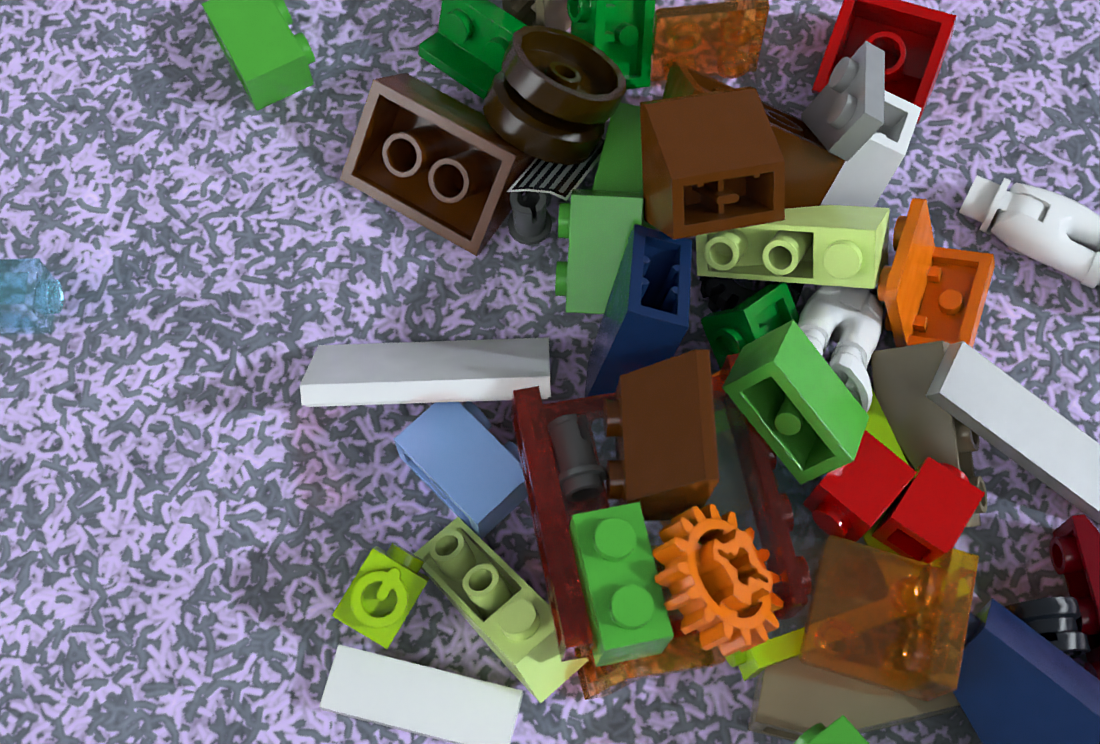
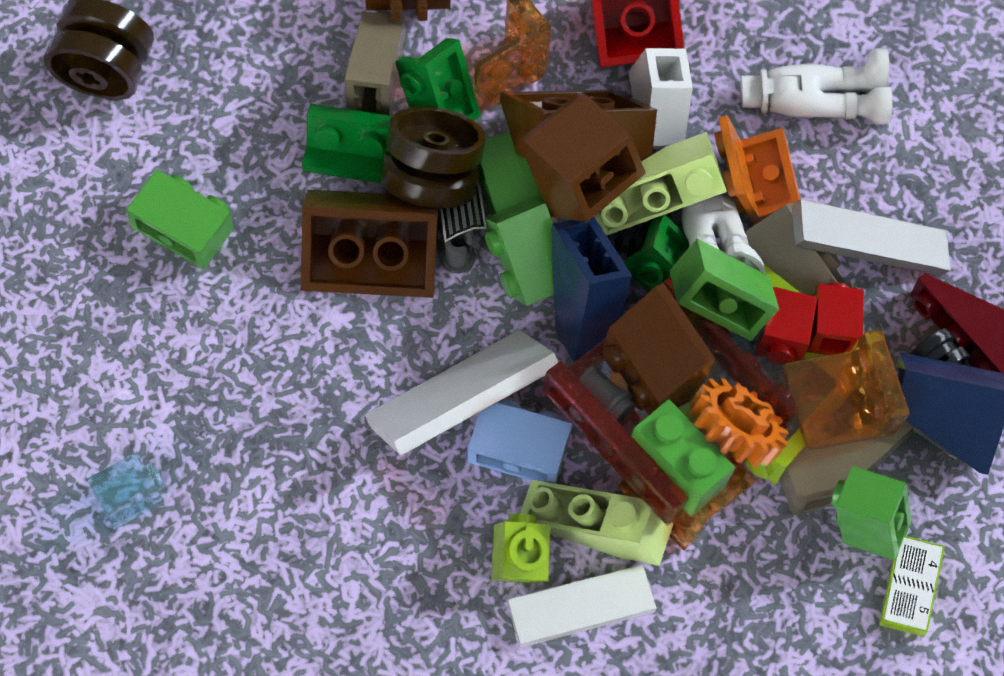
camera: 35 degrees left, 0 degrees up
(850, 104) = (639, 70): light grey wing -> none

